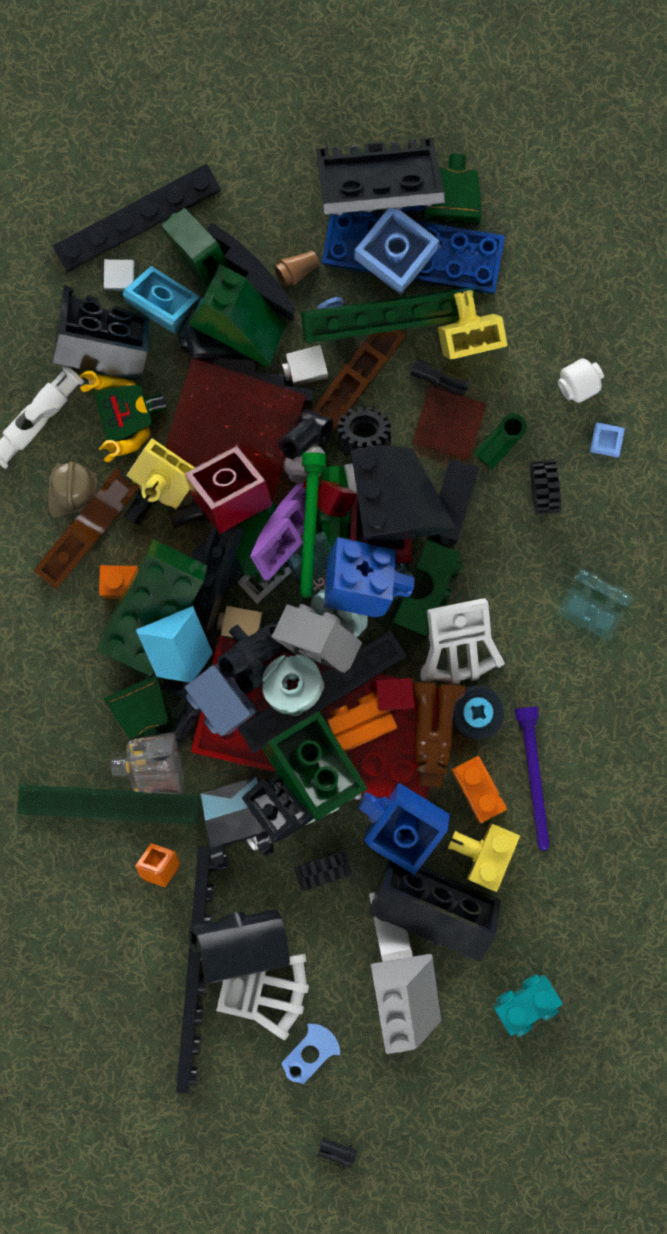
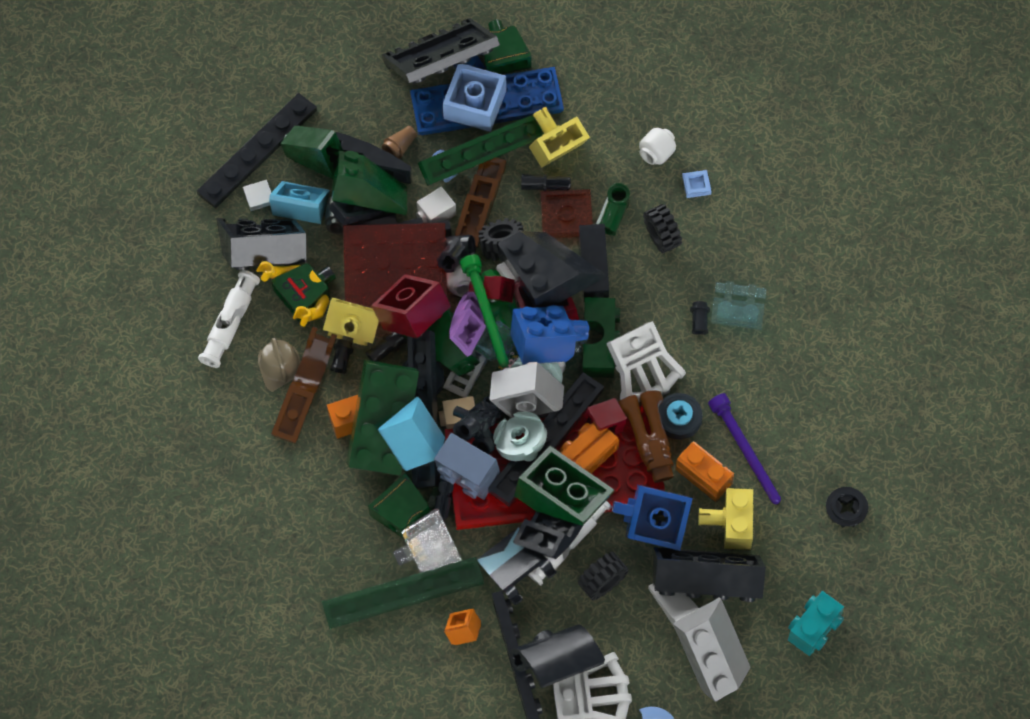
camera: 20 degrees left, 20 degrees down
(545, 604) = (700, 317): none -> black pin
(629, 887) = (847, 495): none -> black gear

